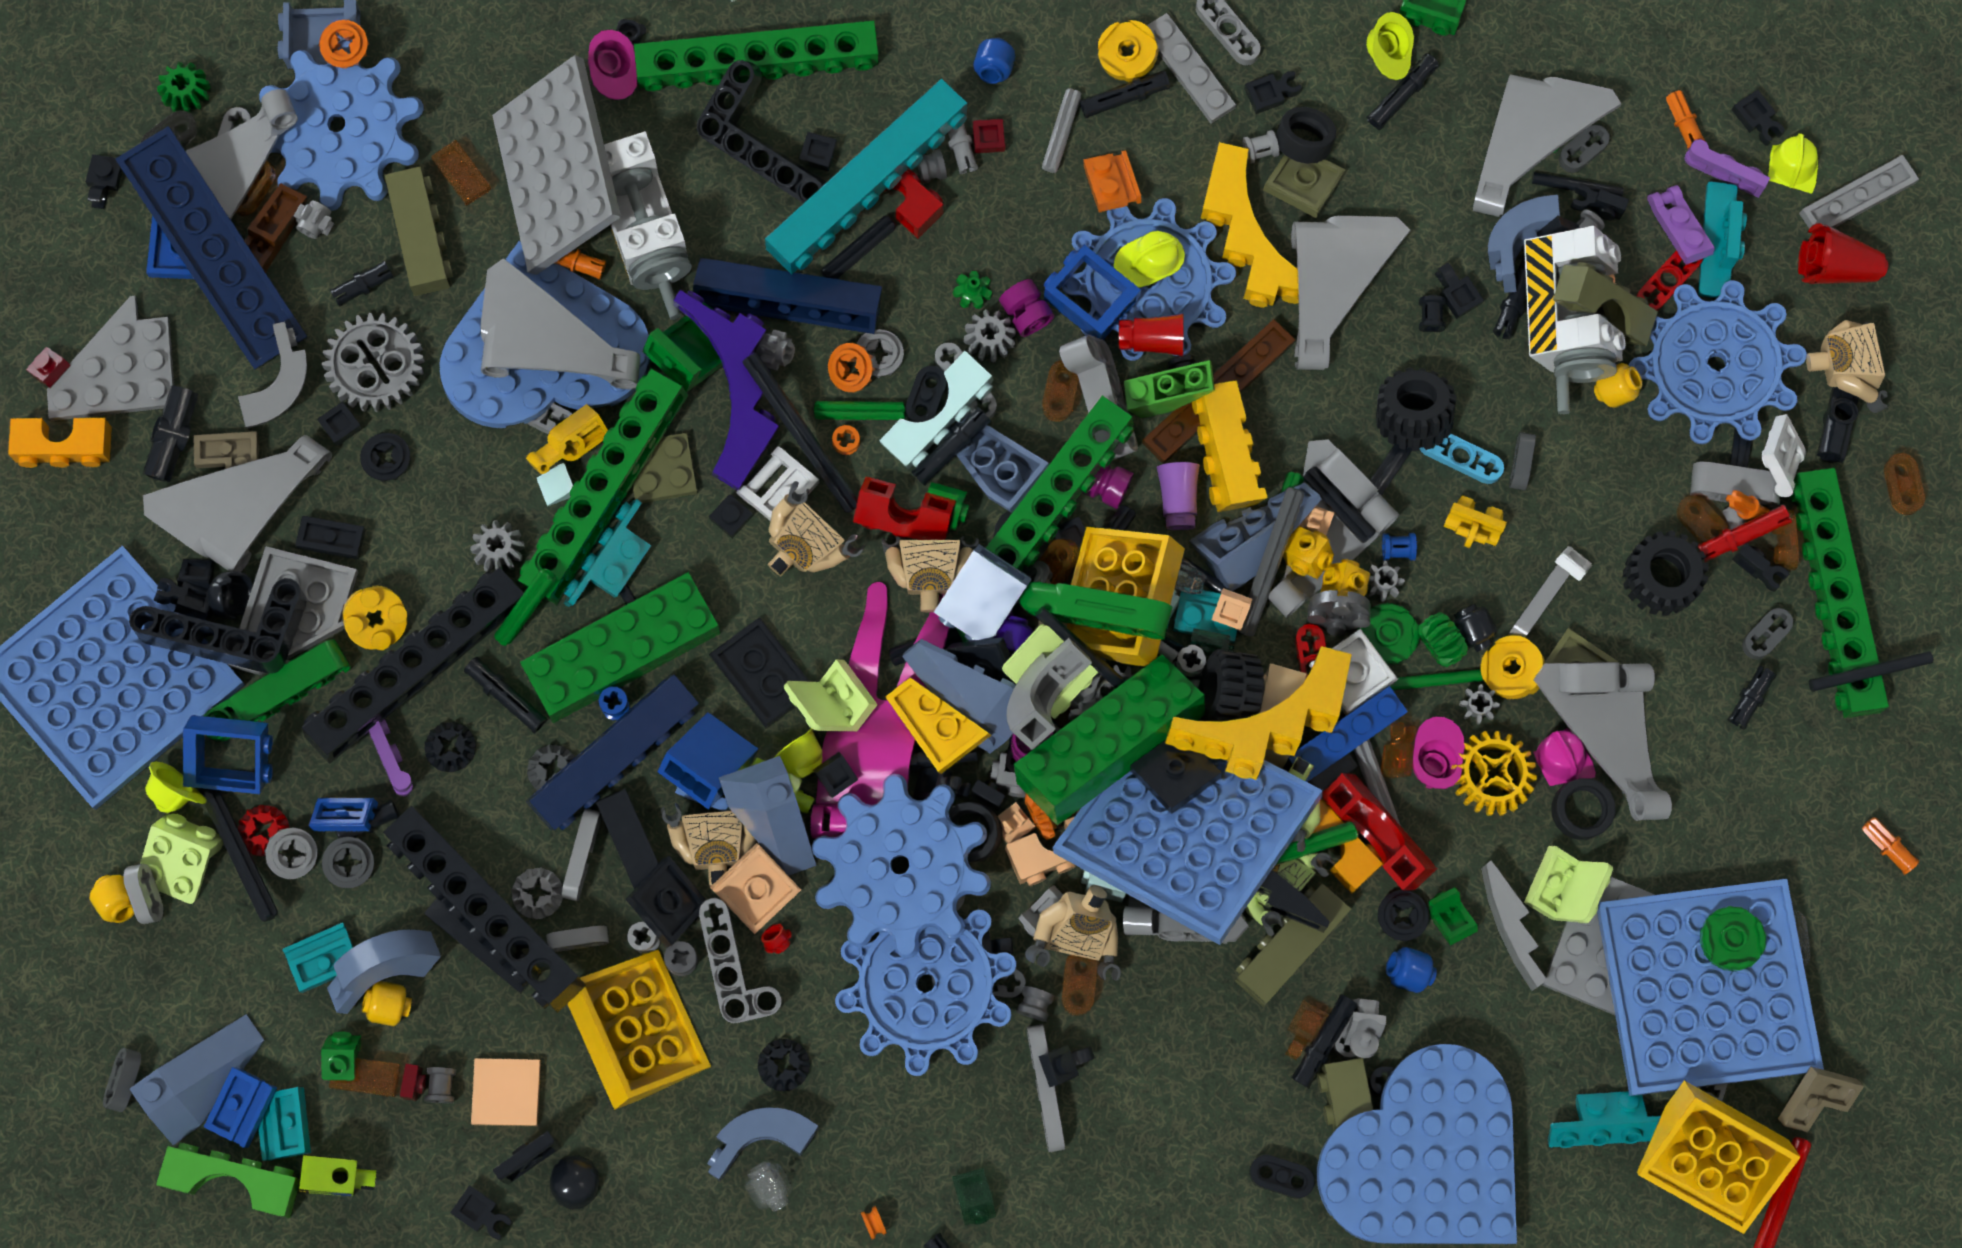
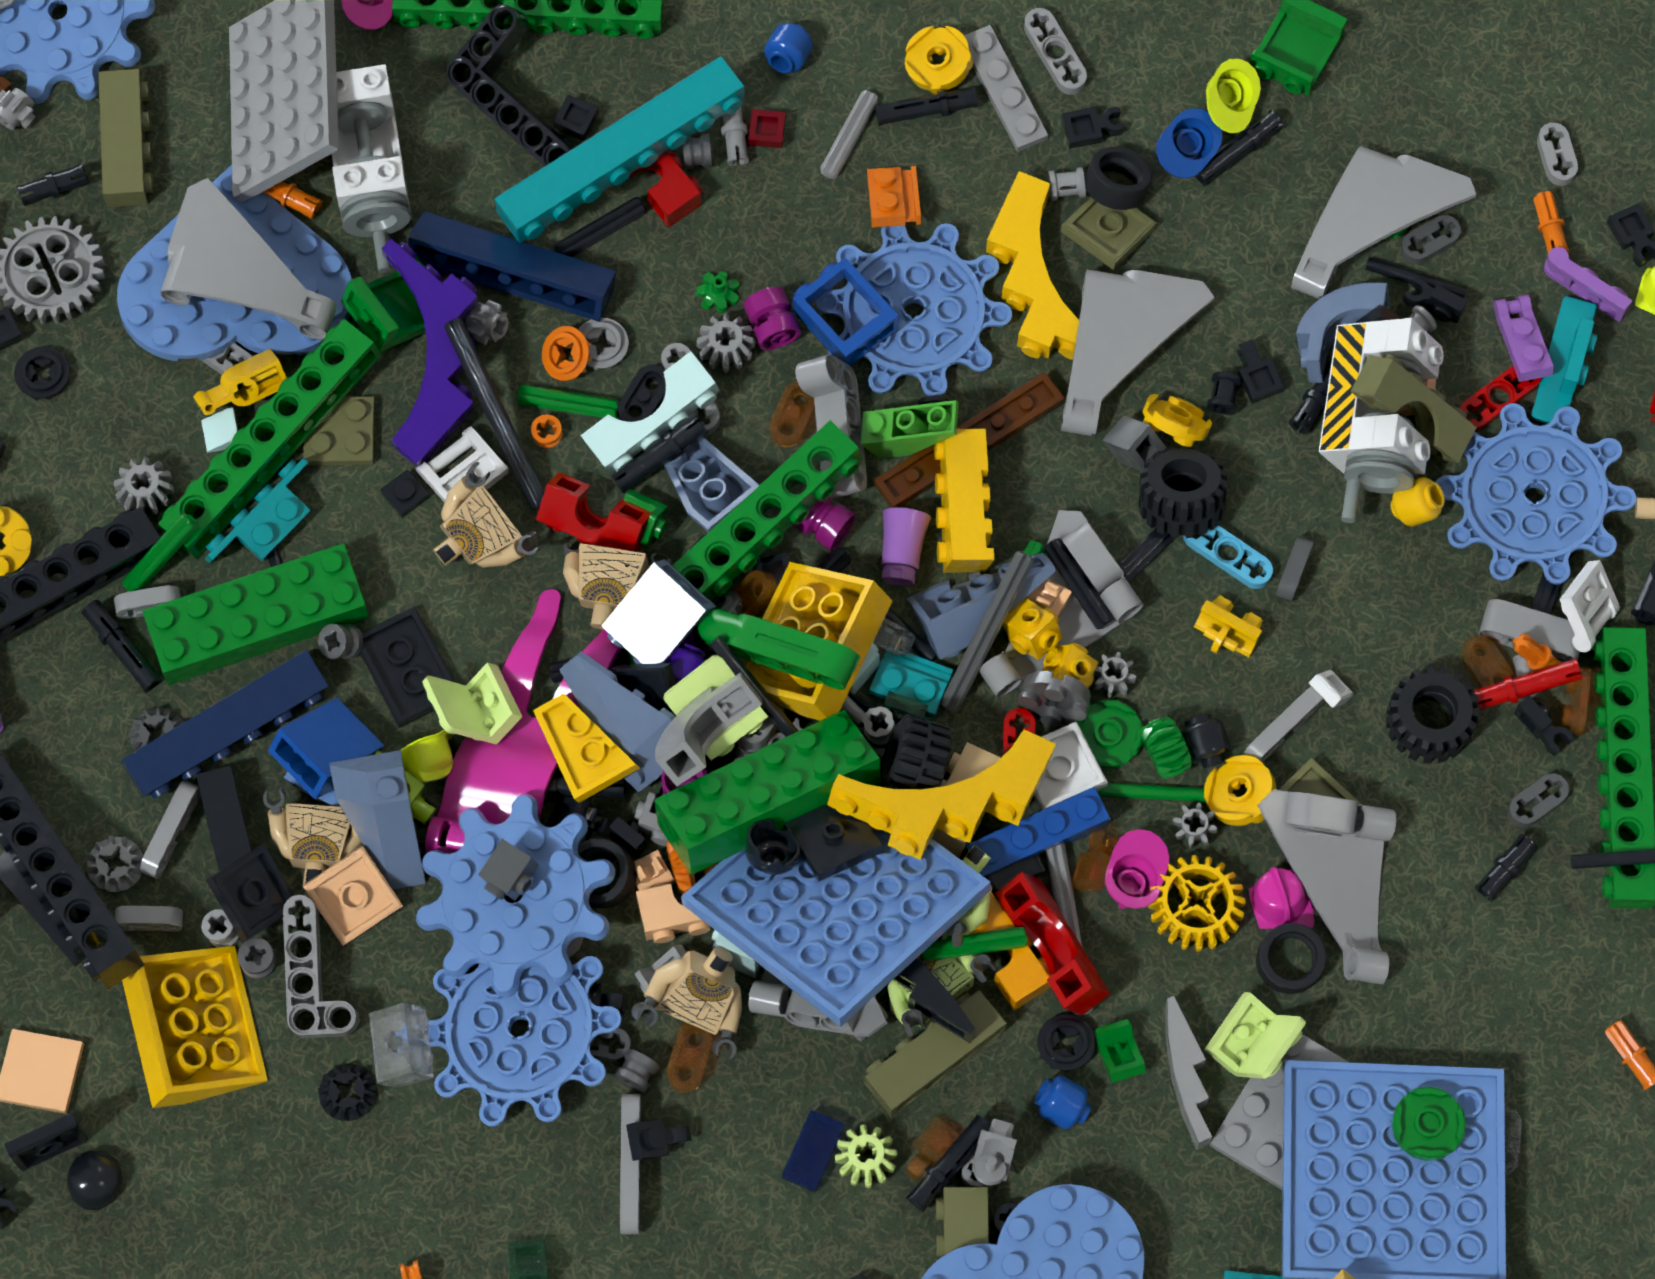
camera: 15 degrees right, 5 degrees down
(450, 761) = (48, 707): black gear -> none
(461, 172) = (183, 83): clear orange plate -> none
(515, 652) = (132, 603): none -> light grey beam
(608, 695) = (233, 663): blue bush -> none
(707, 655) = (348, 636): none -> flat silver wheel
(761, 1124) = (306, 1151): sand blue arch -> none
(768, 1186) = (304, 1218): clear head -> none
(776, 939) = (365, 954): red plate -> none
(825, 1016) = (401, 1045): none -> clear brick
(835, 774) = (462, 785): black plate -> none
(895, 849) = (508, 871): none -> dark grey brick
(1125, 791) = (771, 849): none -> black hair
(1150, 258) = (919, 285): neon yellow piece -> none
(1153, 334) = (905, 367): red plant -> none
(1202, 1049) = (812, 1151): none -> clear blue plate
(1232, 609) = (935, 676): light nougat tile -> none
(1242, 1037) = (871, 1167): none -> yellowish green gear
(1362, 94) = (1188, 143): none -> blue piece
(1363, 371) = (1133, 442): none -> dark grey brick
(1397, 343) = (1177, 419): none -> yellow plate
(1408, 542) = (1138, 640): blue bush -> none
(1672, 58) = (1550, 155): none -> light grey beam

